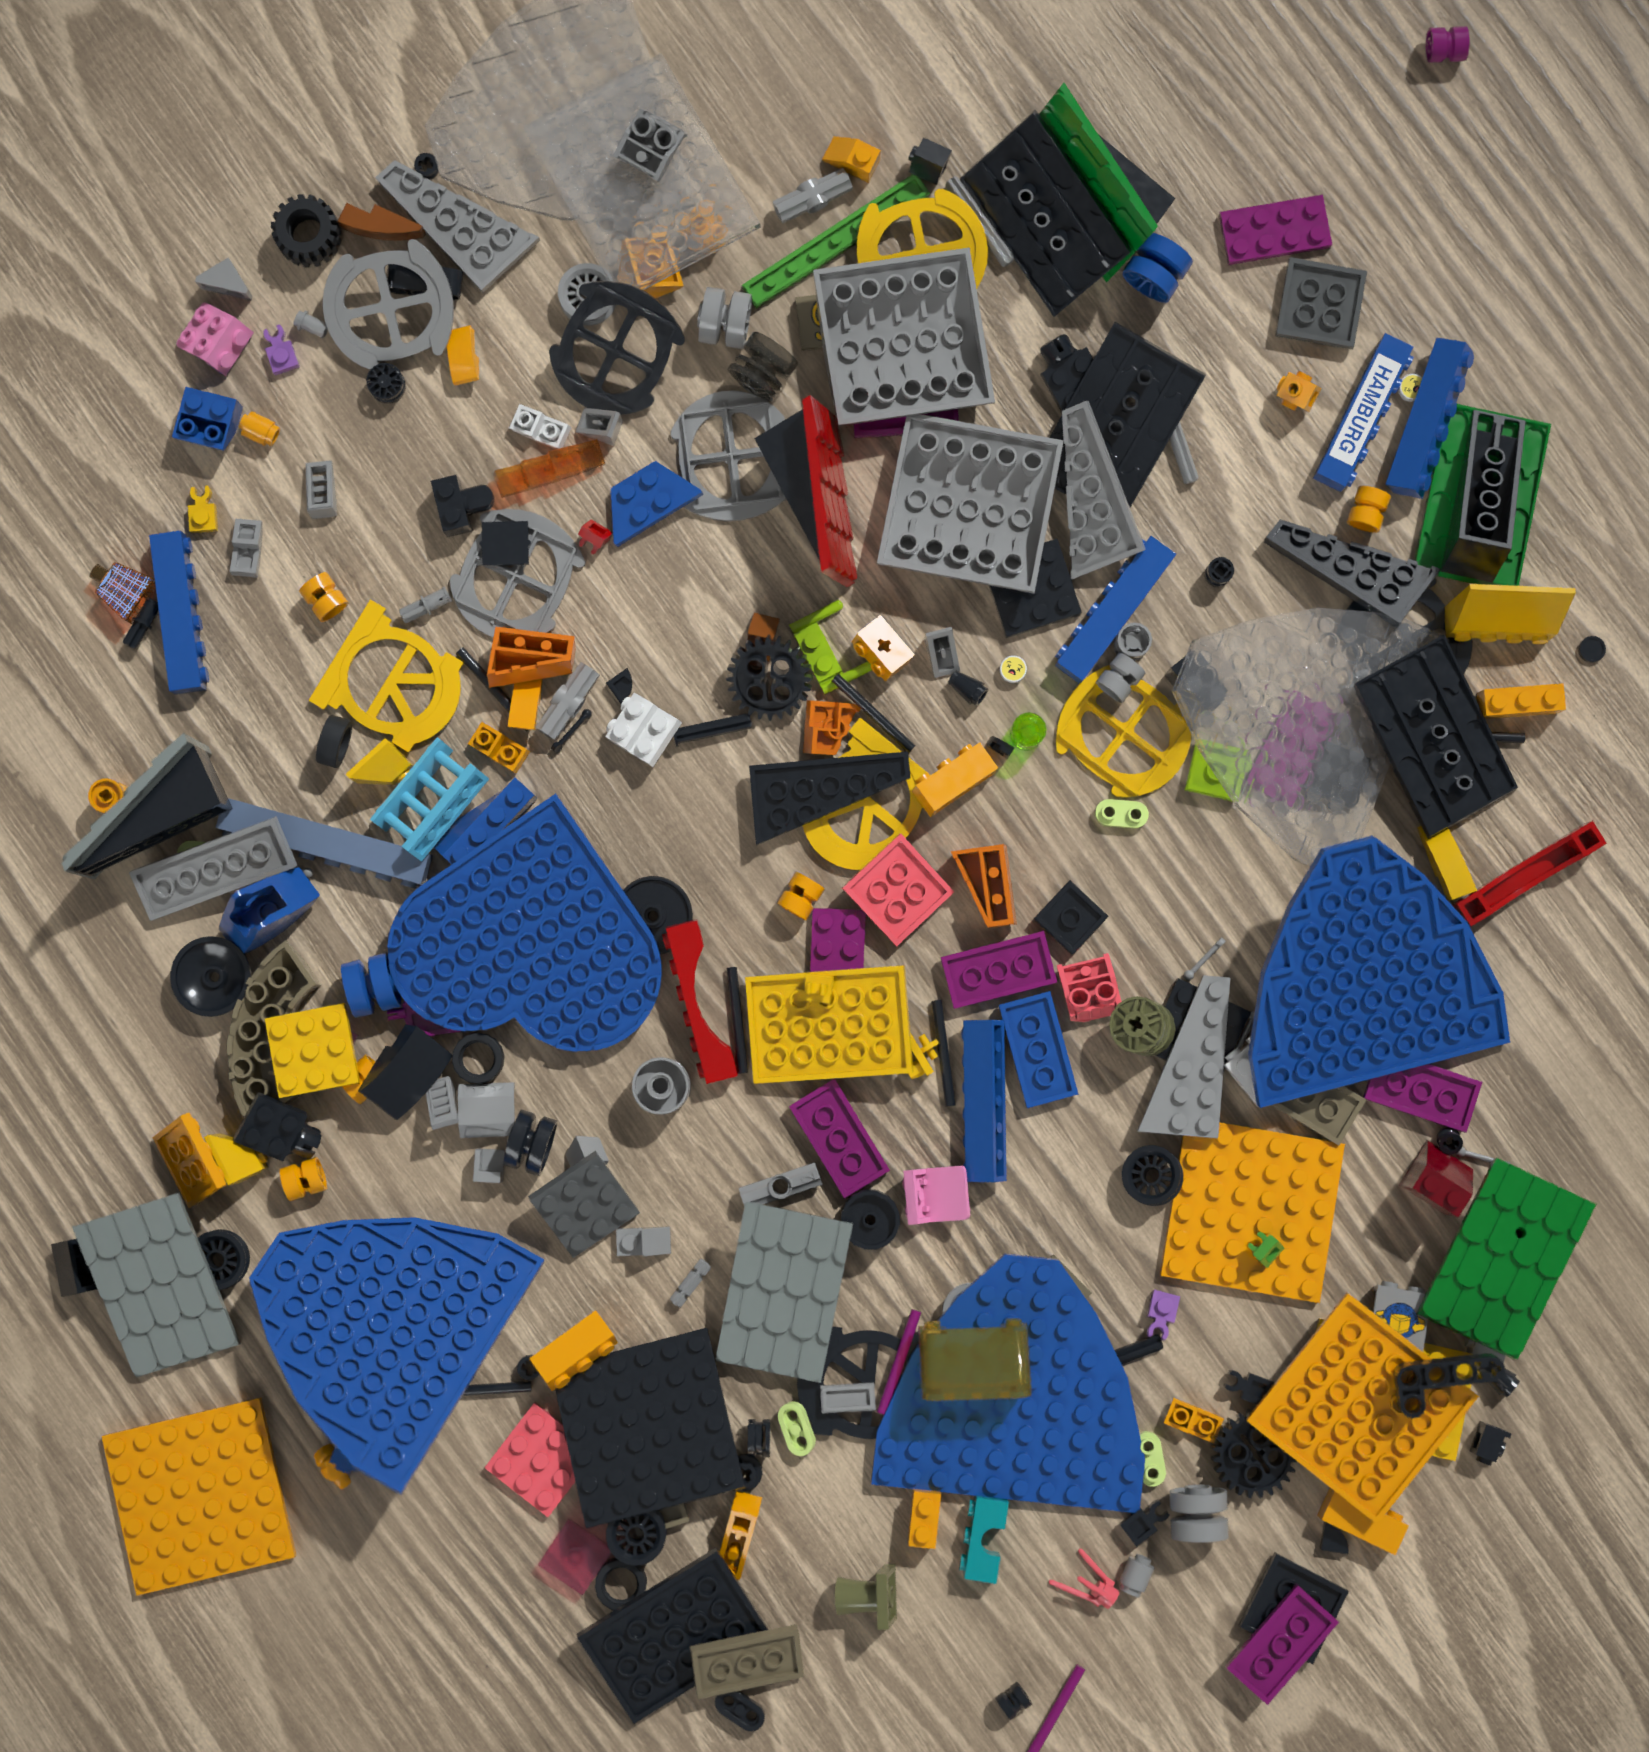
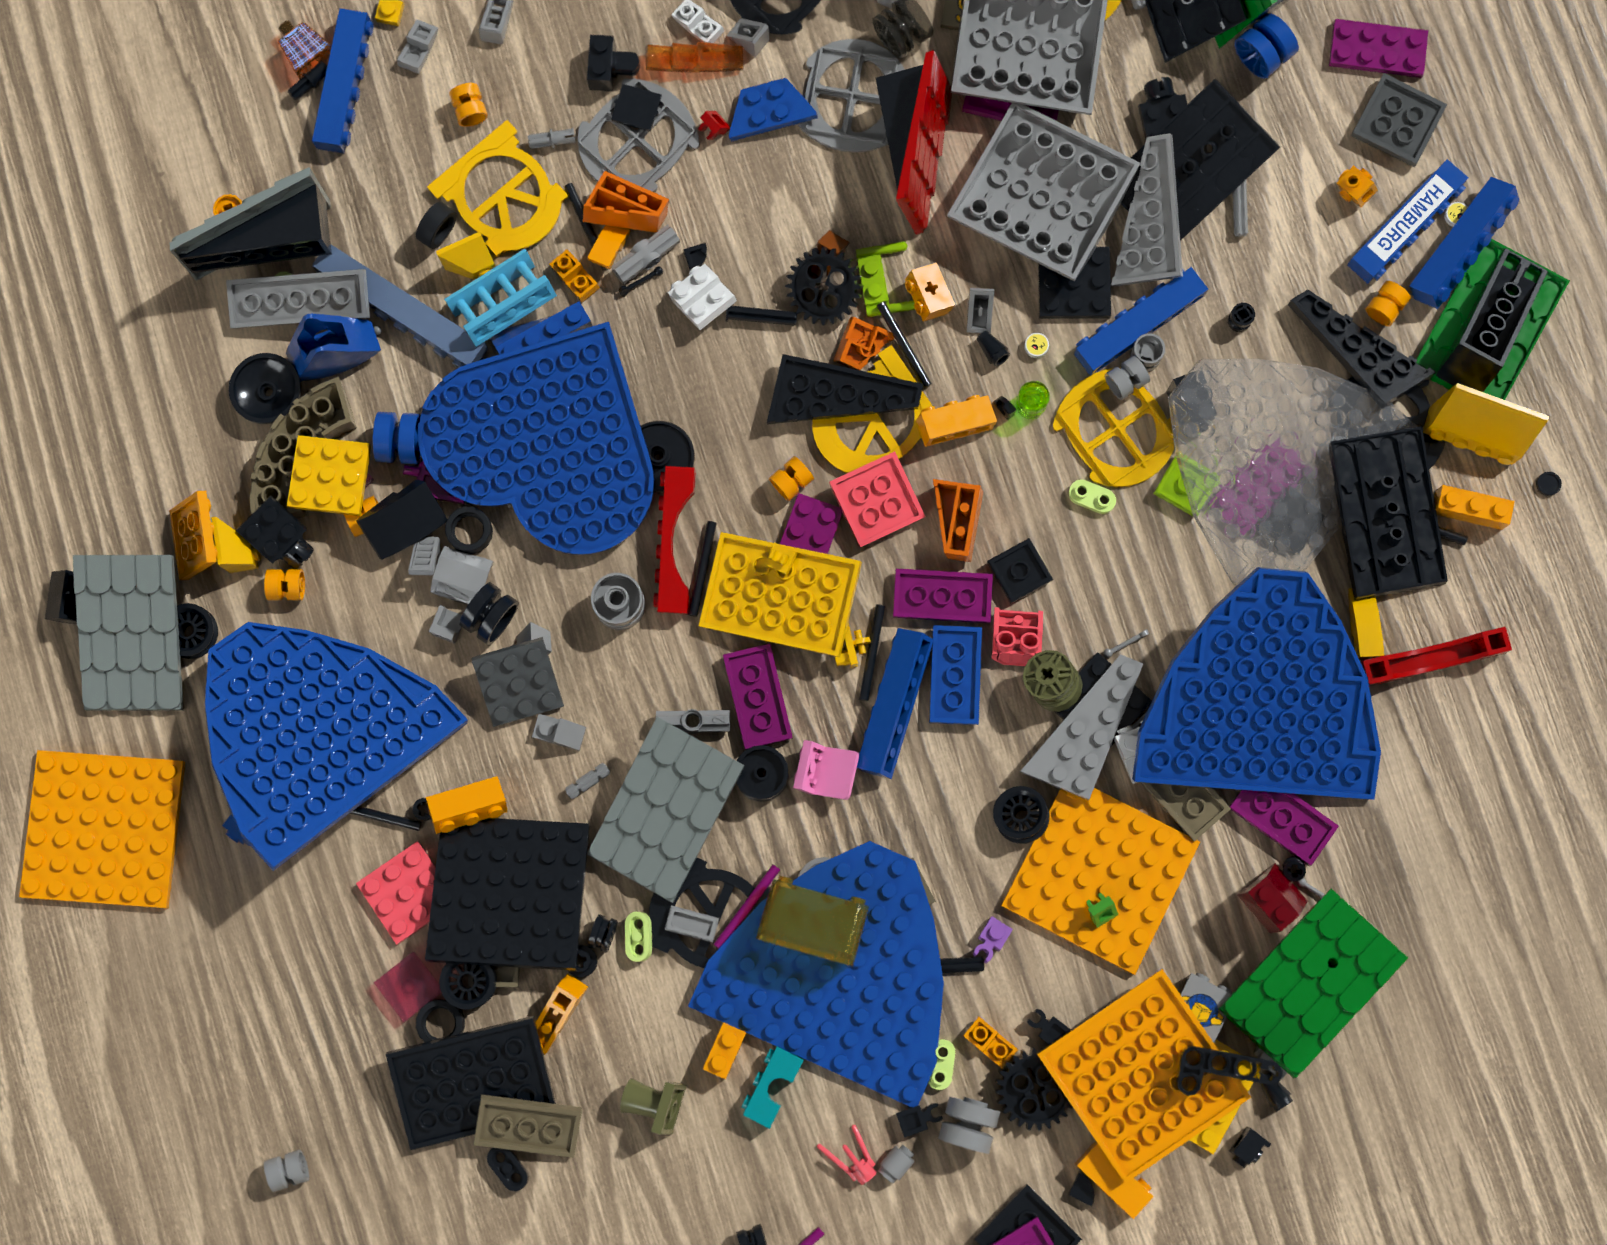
camera: 20 degrees right, 5 degrees down
(328, 1469) = (223, 842): light orange animal -> none

